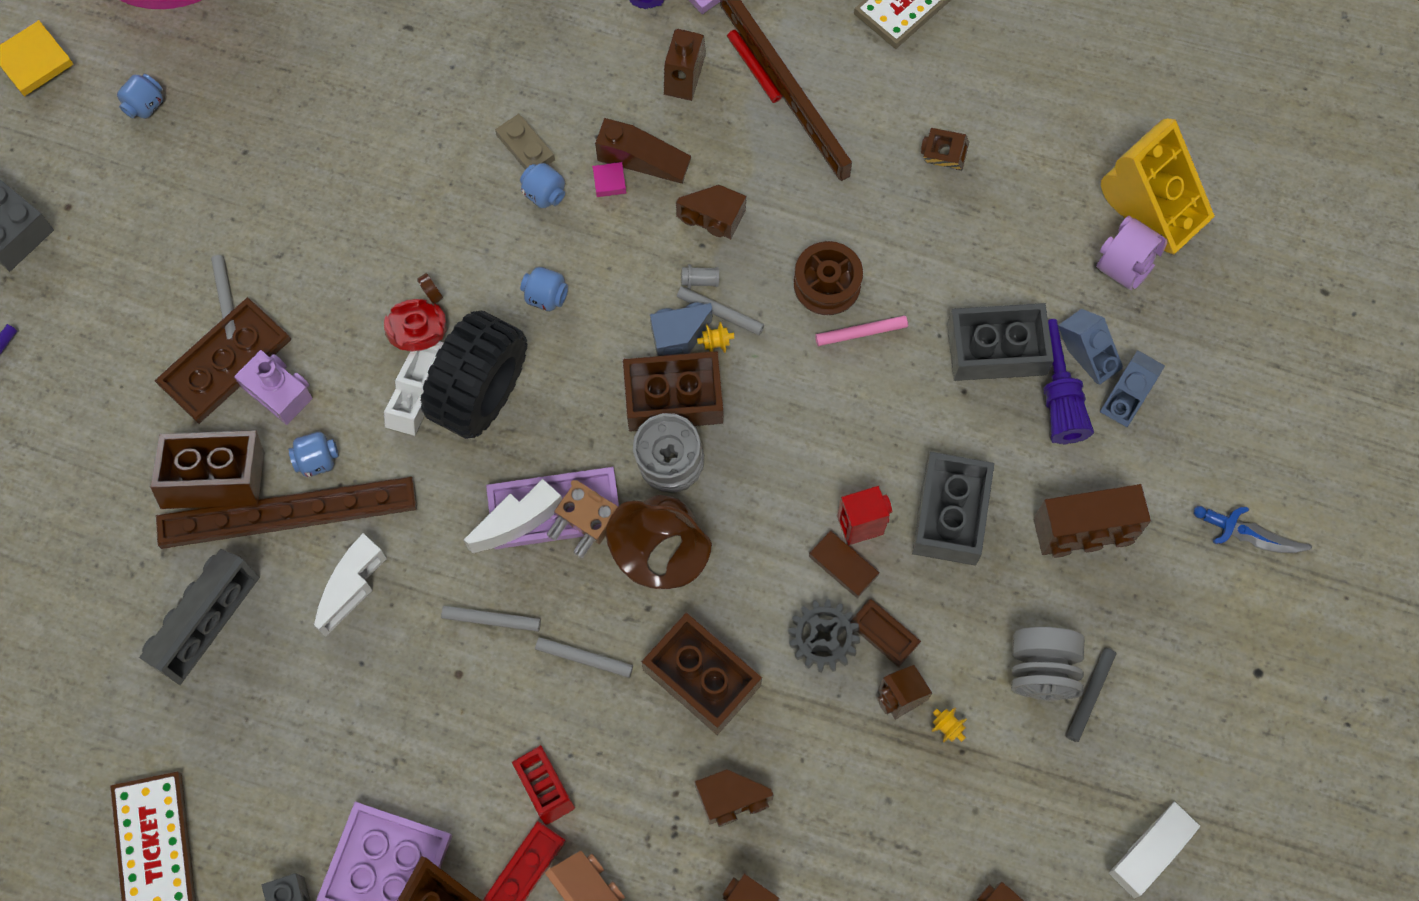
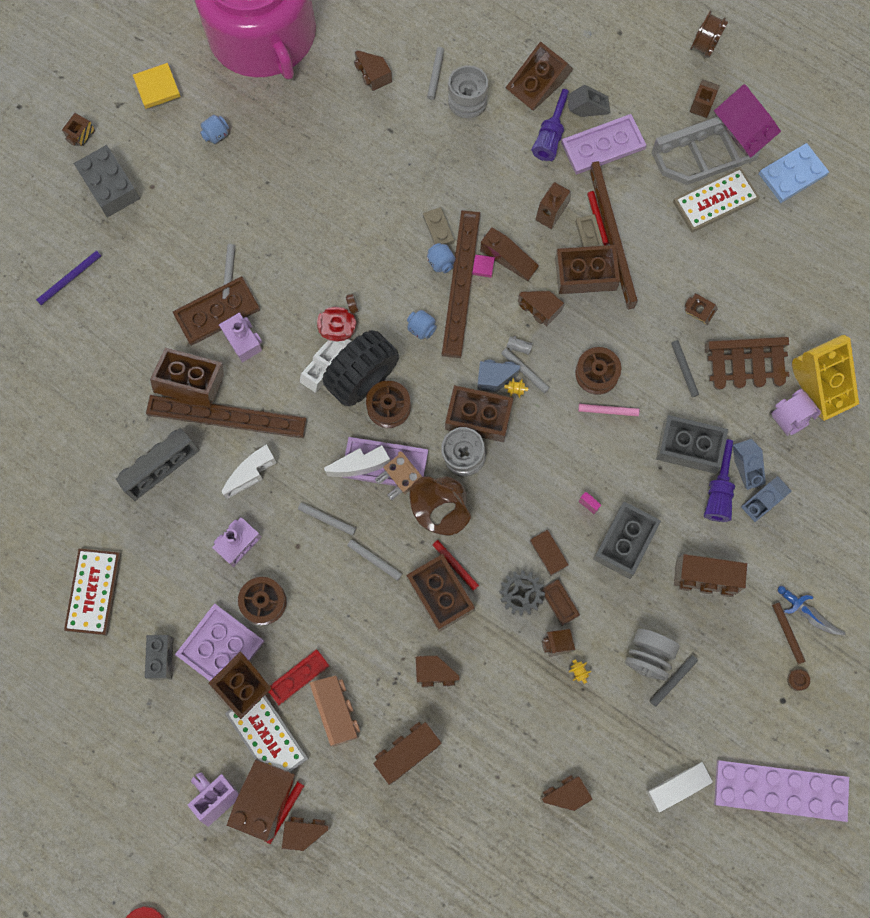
camera: 20 degrees right, 5 degrees up
(313, 454) = (251, 386): medium blue head -> none
(360, 695) = (236, 541): none -> lavender brick
(437, 791) = (274, 602): none -> reddish brown wheel
(534, 435) = (388, 415): none -> reddish brown wheel
(556, 802) = (329, 645): red slope -> none
(584, 216) = (461, 284): none -> reddish brown tile
(714, 628) = (456, 565): none -> red bar
(750, 92) = (589, 231): none -> dark tan plate
(763, 139) = (587, 269): none -> reddish brown brick
(864, 515) = (570, 527): red brick -> none
(880, 472) = (589, 503): none -> dark pink tile
(951, 240) = (685, 368): none -> dark grey piece
(1021, 201) = (738, 359): none -> reddish brown fence
(1232, 571) = (788, 633): none -> reddish brown piece
(1270, 634) = (798, 680): none -> reddish brown tile
(1304, 806) = (782, 791): none -> lavender plate

